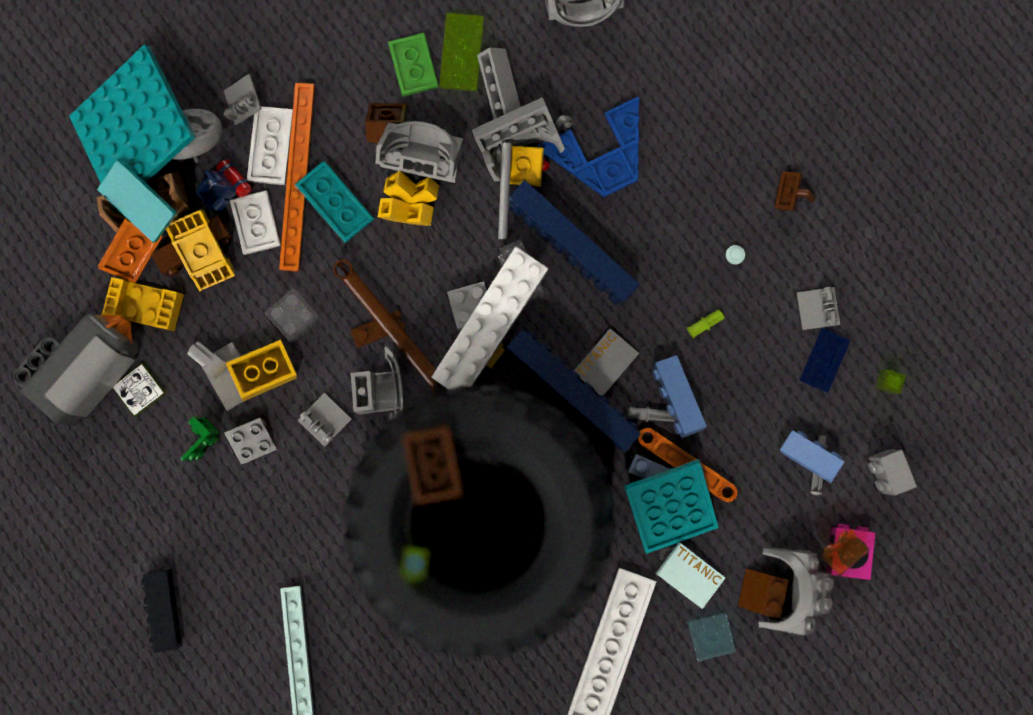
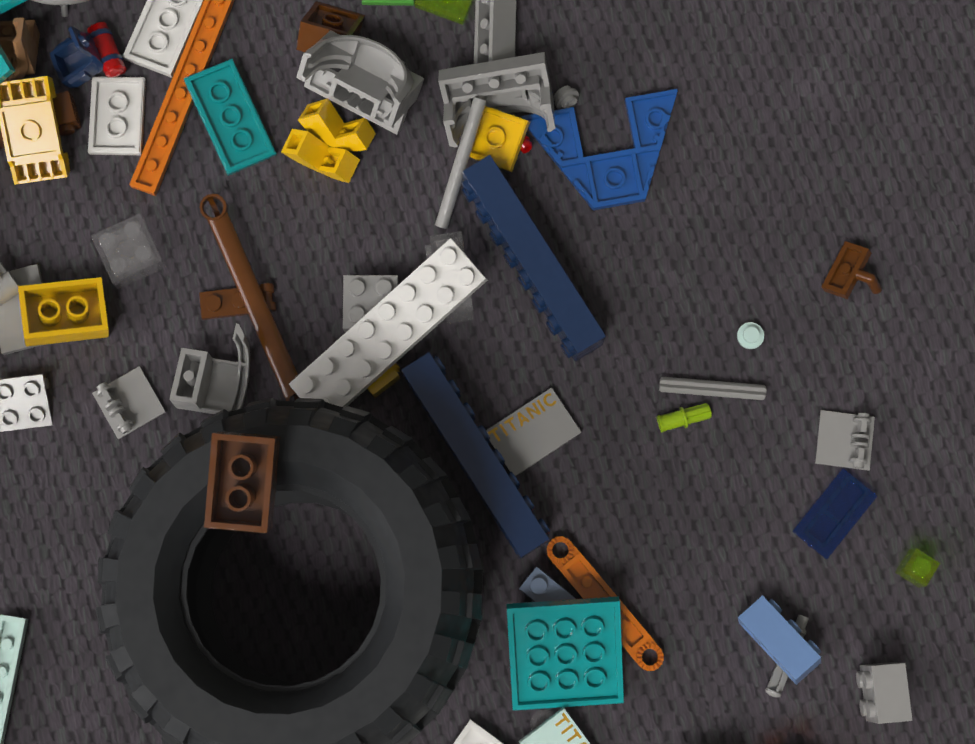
camera: 15 degrees right, 5 degrees down
(413, 564) = (177, 611): clear neon green brick -> none
(649, 414) = (569, 518): light grey axle -> none
(678, 396) = (618, 505): medium blue brick -> none
(718, 298) = (712, 388): none -> light grey axle

